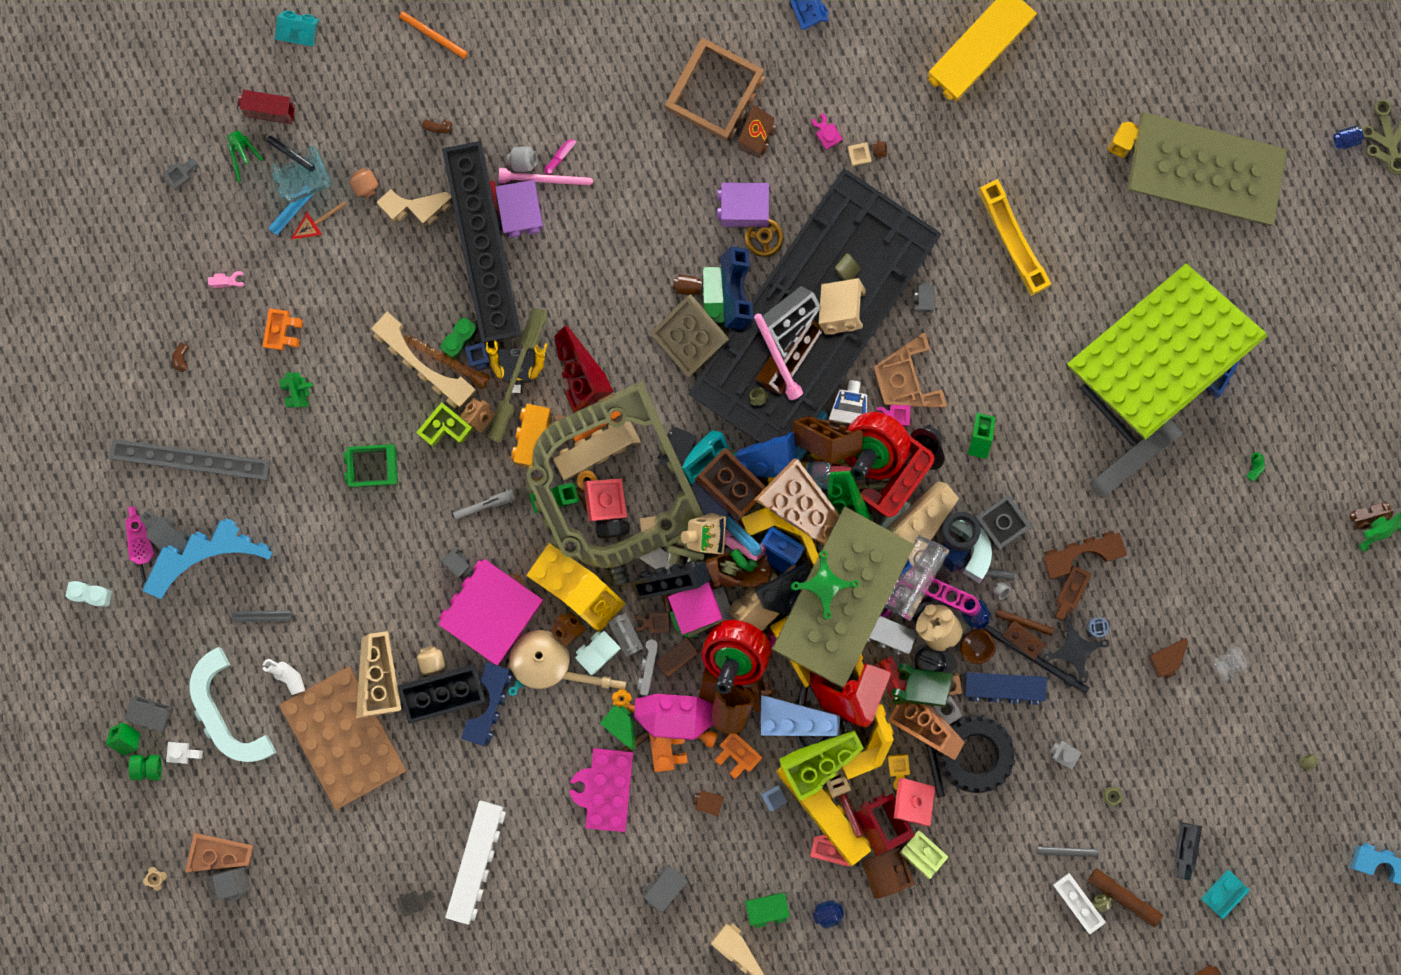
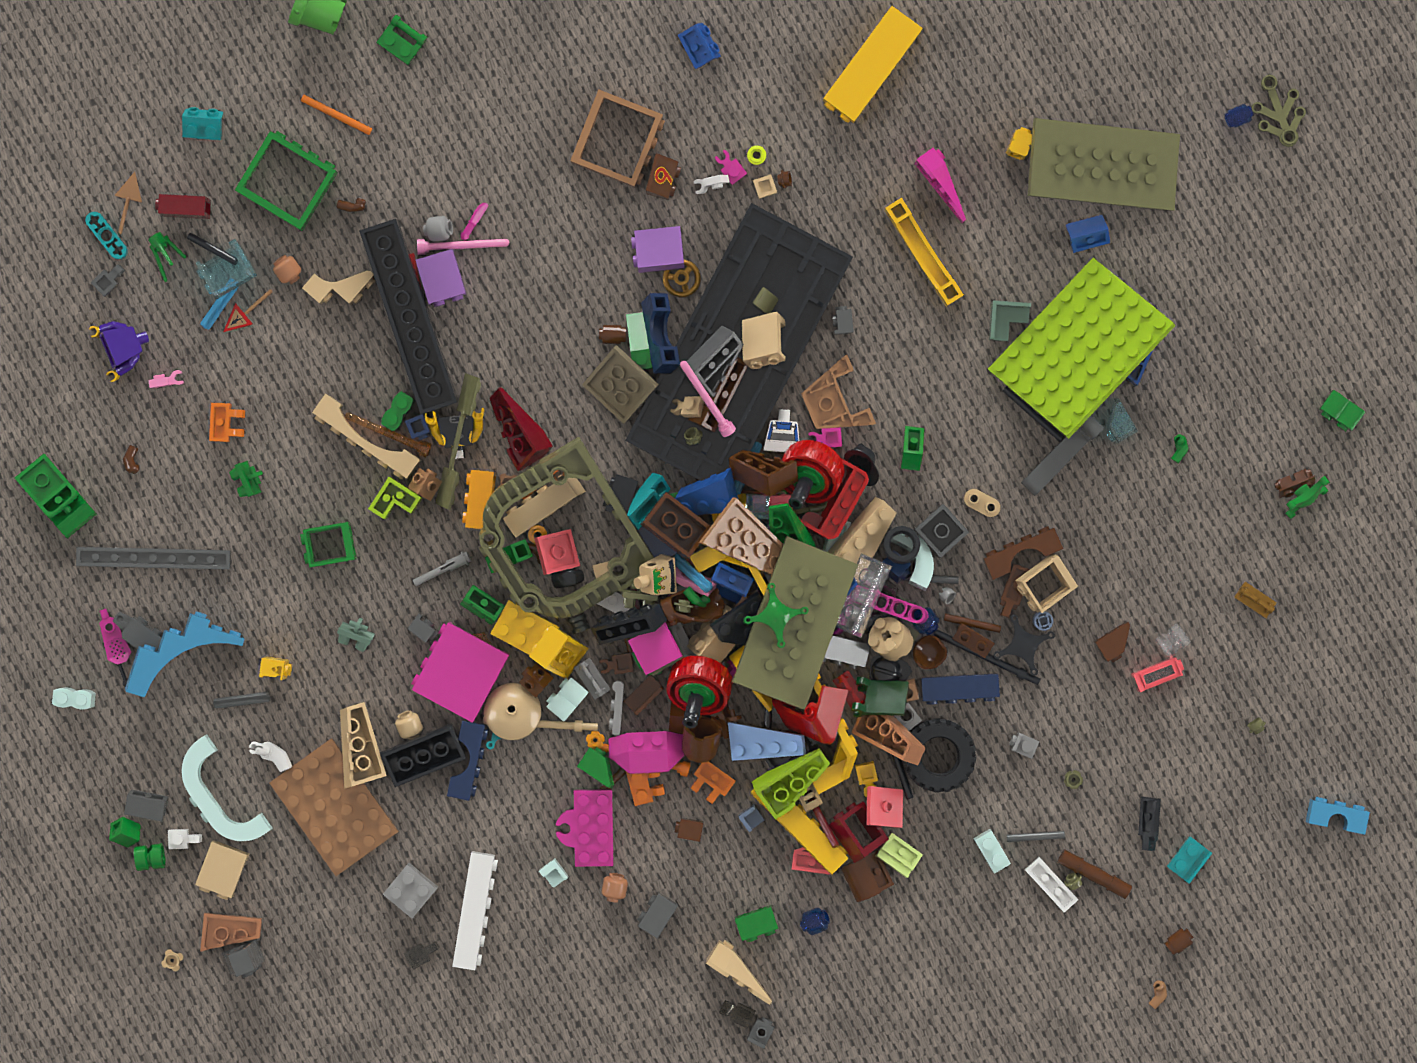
camera: 10 degrees left, 5 degrees up
(98, 384) = (55, 496): none -> green piece
(182, 114) = (111, 249): none -> teal beam
(184, 240) = (121, 346): none -> dark purple torso
(215, 88) = (129, 191): none -> medium nougat piece
(218, 789) = (221, 869): none -> tan panel
(300, 585) = (275, 667): none -> yellow hinge
(388, 558) = (357, 632): none -> sand green hips
(402, 72) = (311, 157): none -> green window
(411, 833) = (410, 890): none -> light grey brick
(521, 545) = (482, 604): none -> green brick
(562, 832) = (553, 873): none -> light aqua panel
(624, 854) = (614, 887): none -> nougat head
(759, 366) = (689, 408): none -> tan plate
(808, 143) = (715, 182): none -> white plate
(854, 116) = (752, 150): none -> neon yellow plate
(1021, 861) = (992, 851): none -> light aqua brick
(1034, 158) = (936, 172): none -> dark pink wedge
(1047, 500) = (982, 502): none -> tan plate
(1089, 309) = (1005, 313): none -> sand green panel
(1122, 580) = (1063, 576): none -> tan window
(1183, 238) = (1088, 233): none -> blue panel
(1197, 433) = (1119, 423): none -> clear light blue slope
(1212, 696) = (1158, 674): none -> coral window
(1319, 631) = (1255, 600): none -> pearl gold hinge

